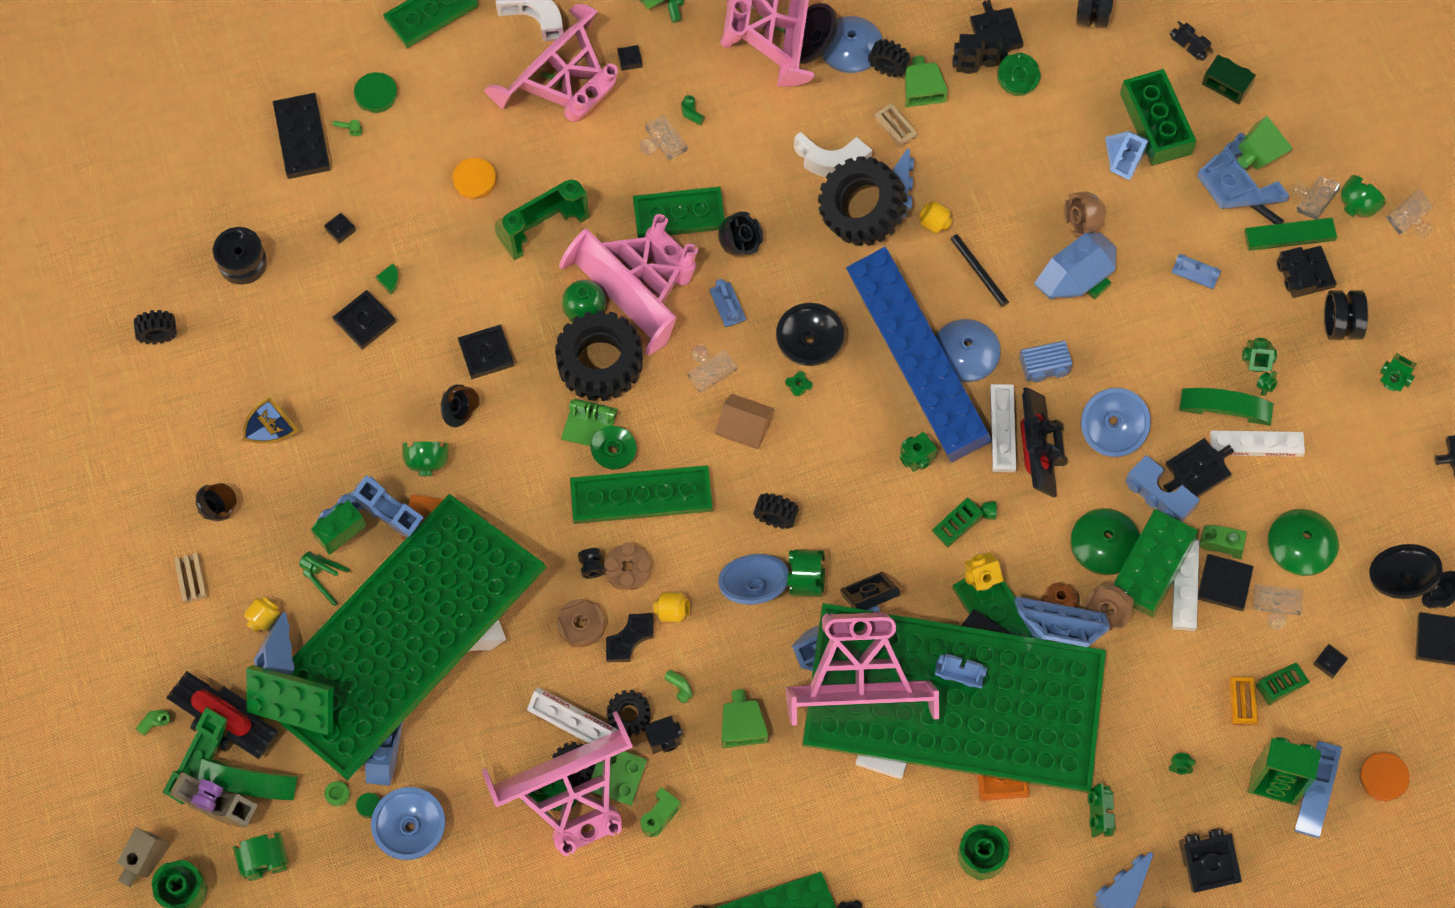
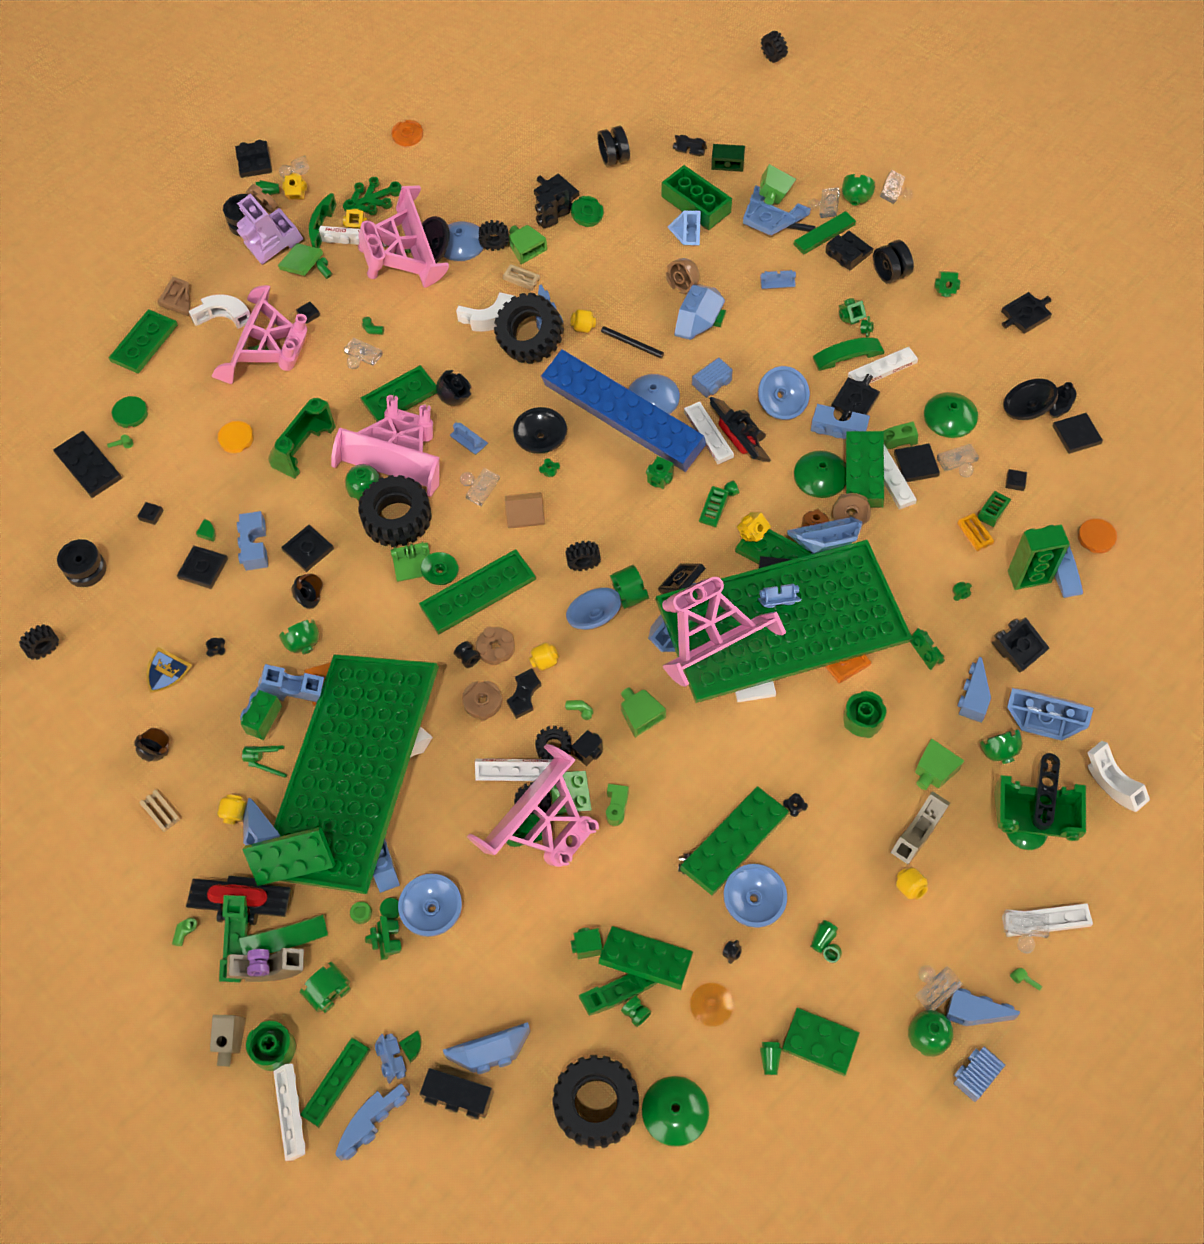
camera: 25 degrees left, 5 degrees down
(333, 415) = (213, 642): none -> black plate
(352, 823) = (386, 946): none -> green hips
(435, 298) = (252, 554): none -> medium blue arch

